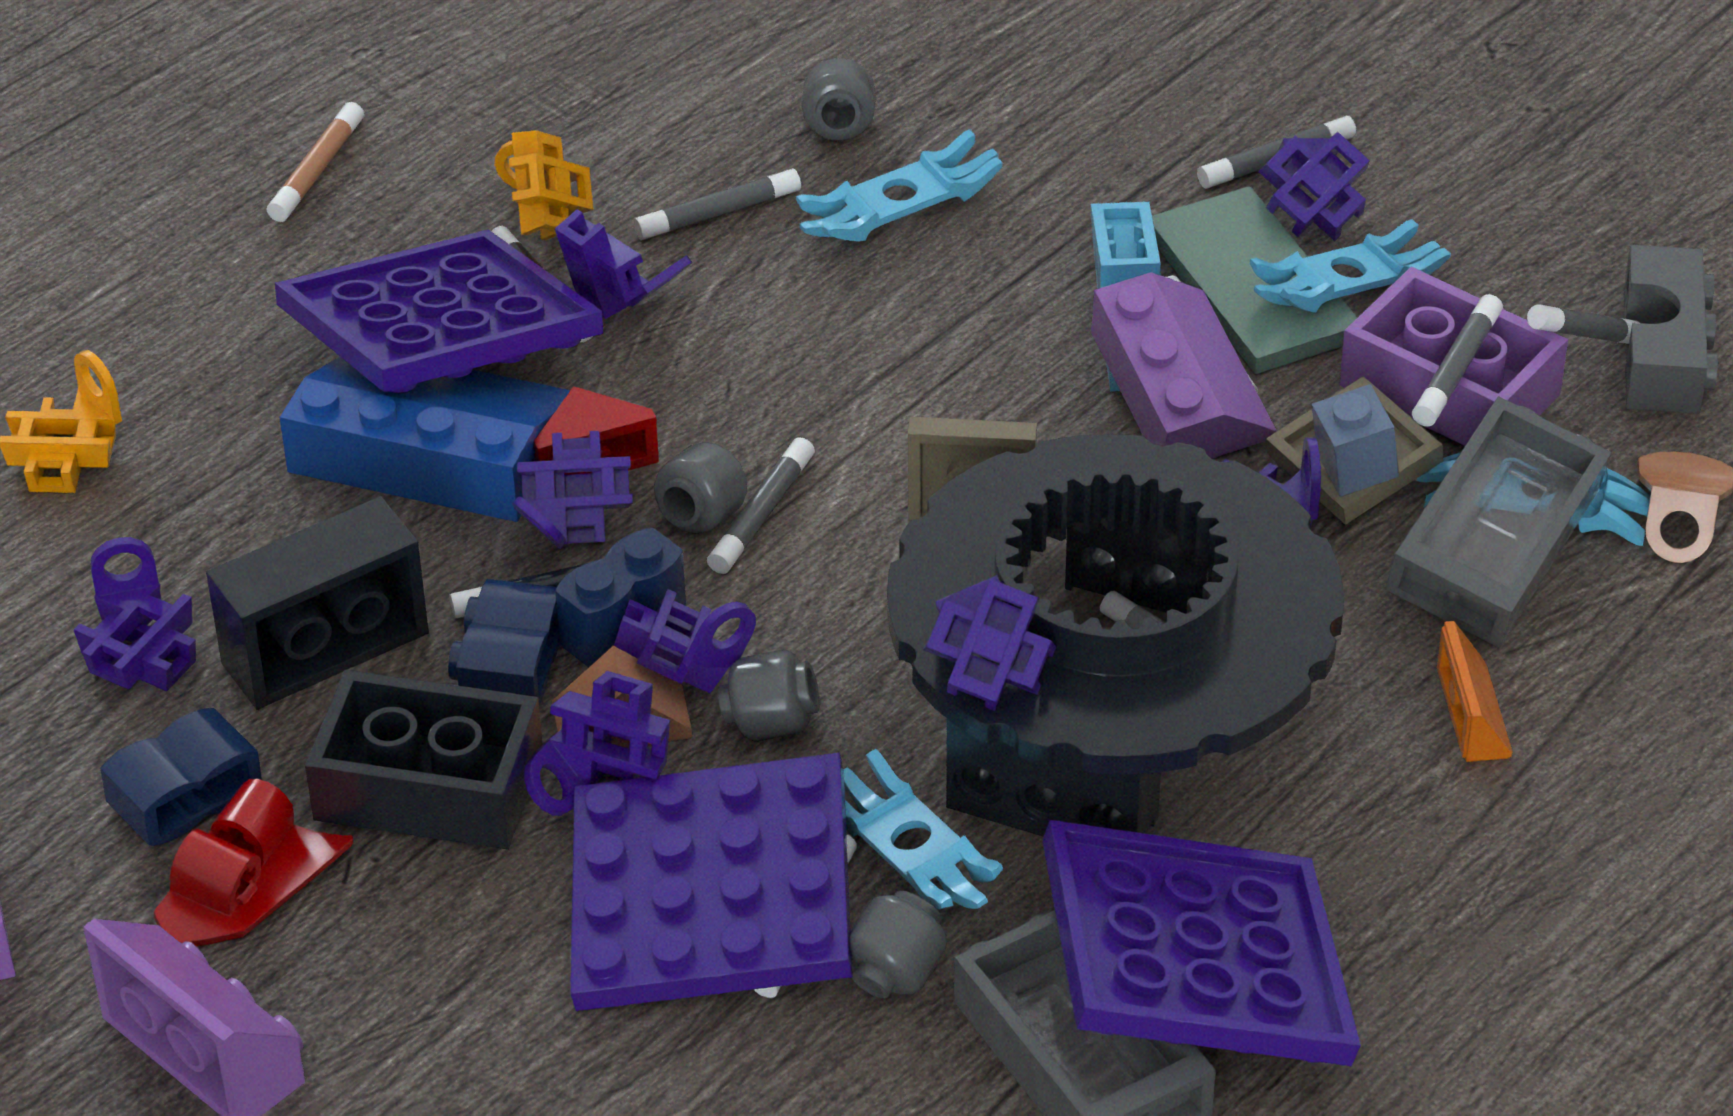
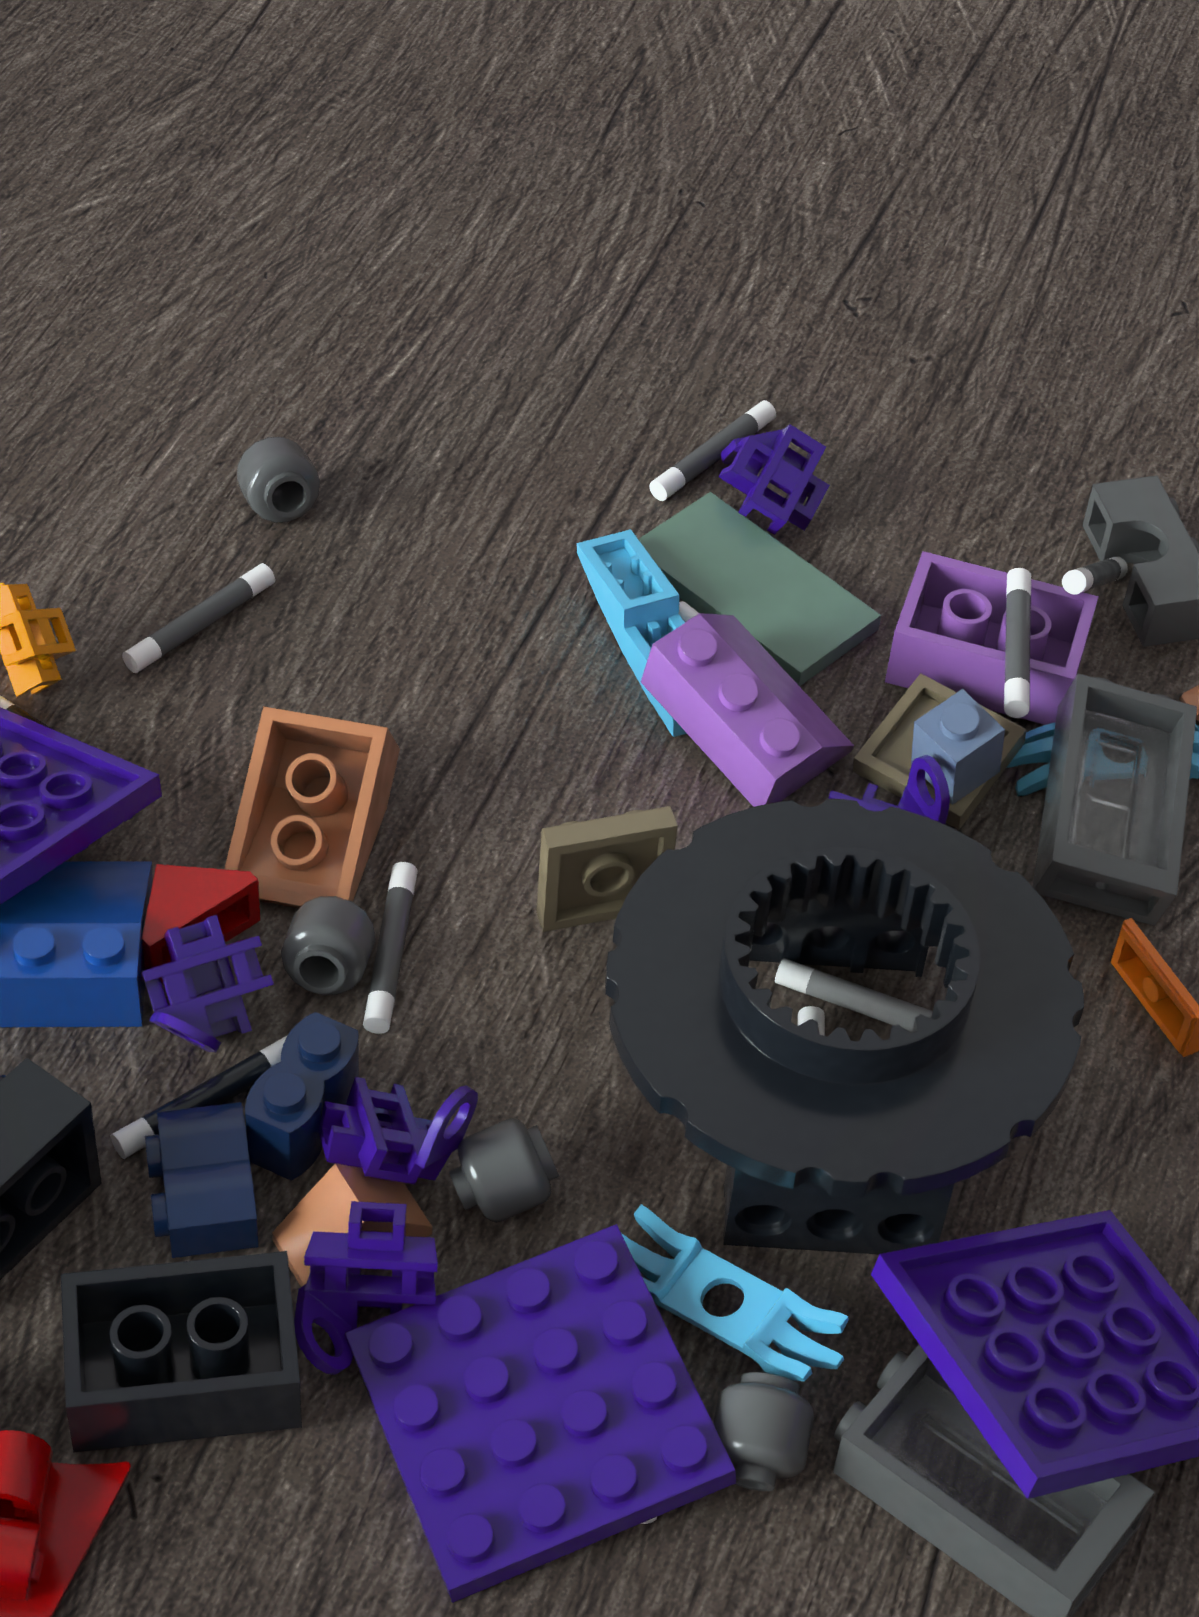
camera: 25 degrees left, 5 degrees up
(606, 268) = (130, 716): dark purple piece -> none
(740, 370) = (311, 805): none -> nougat slope
(931, 177) = (398, 544): medium azure piece -> none
(992, 632) = (783, 1075): dark purple piece -> none
(1319, 283) = (869, 551): medium azure piece -> none

